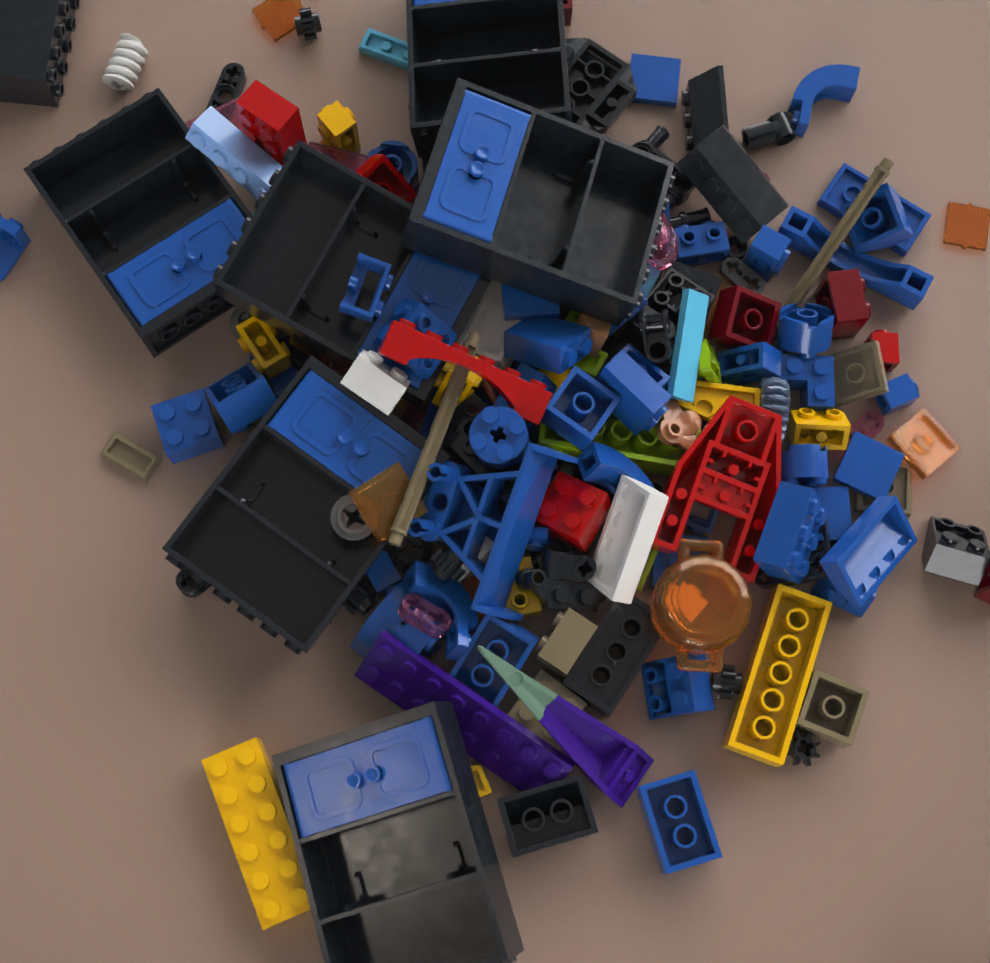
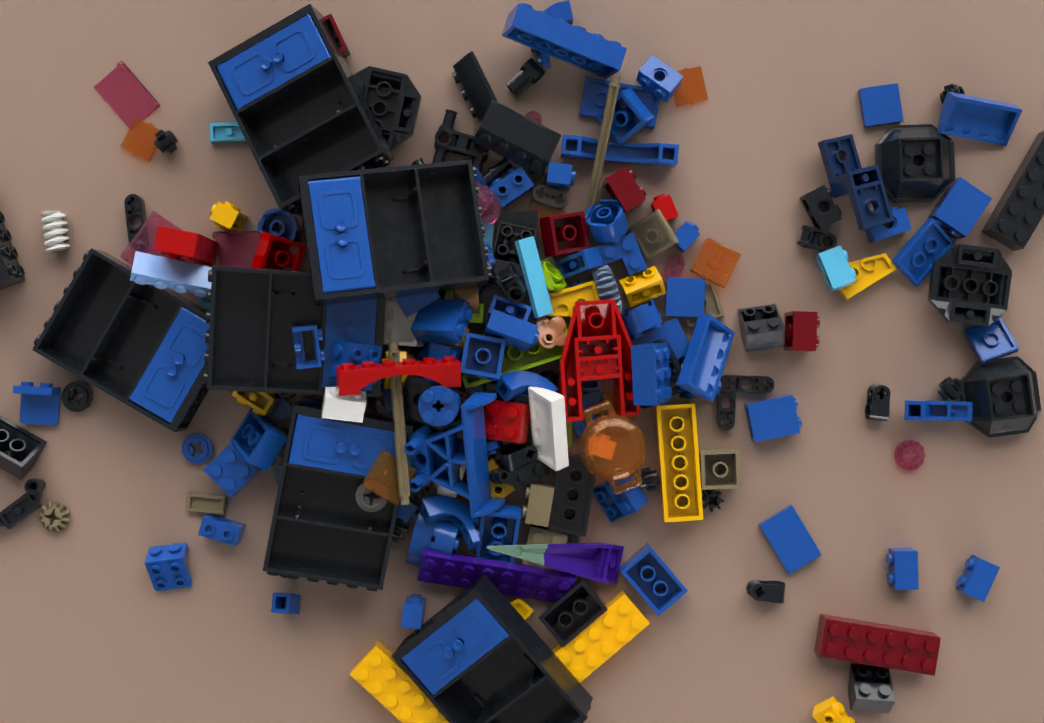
camera: 20 degrees left, 15 degrees up
(37, 251) = (70, 391): none -> black gear
(38, 514) = (168, 566): none -> blue bracket
(133, 495) = (221, 529): none -> blue brick
(144, 382) = (188, 449): none -> blue gear
(165, 627) = (286, 603): none -> blue brick
(329, 713) = (413, 611): none -> blue brick
(424, 615) = (443, 530): clear pink beam -> none
(447, 565) = (443, 495): black gear -> none
(573, 871) = (602, 637): none -> yellow brick
(655, 79) = (428, 71): blue tile -> none
(834, 915) = (769, 590): none -> black piece
(837, 101) = (564, 41): none -> blue brick
(883, 617) = (731, 393): none -> black beam
(890, 857) = (790, 539): none -> blue tile
(928, 675) = (772, 418): none -> blue brick
(936, 197) = (656, 69): none -> brick

